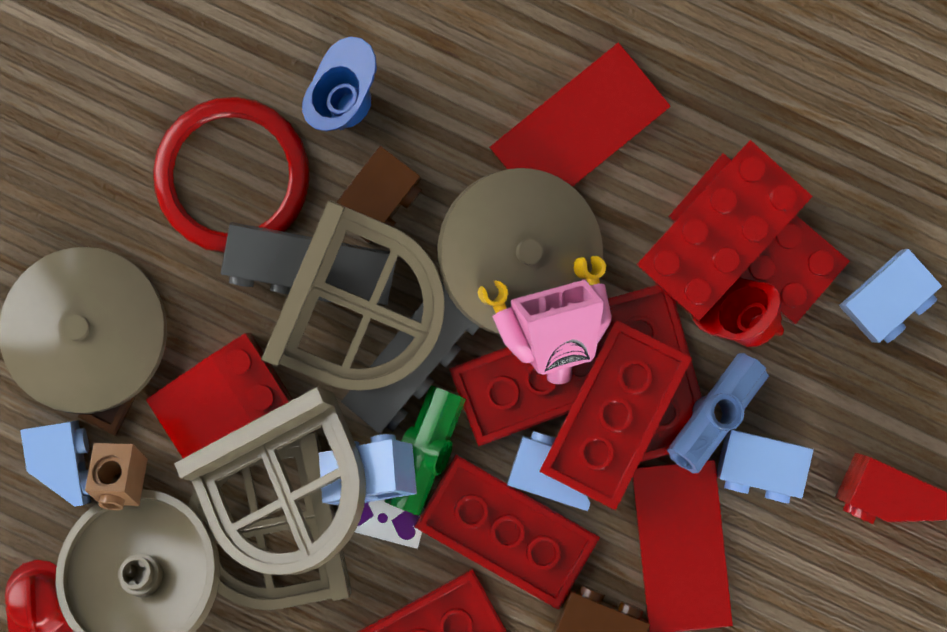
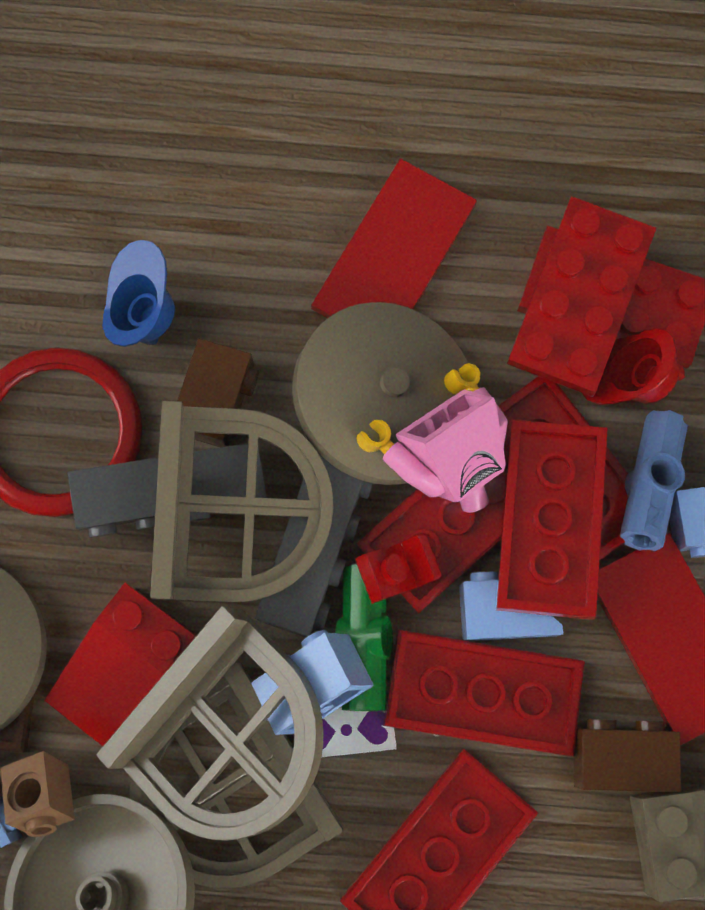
camera: 25 degrees left, 10 degrees down
(473, 406) = (398, 568): none -> red bracket

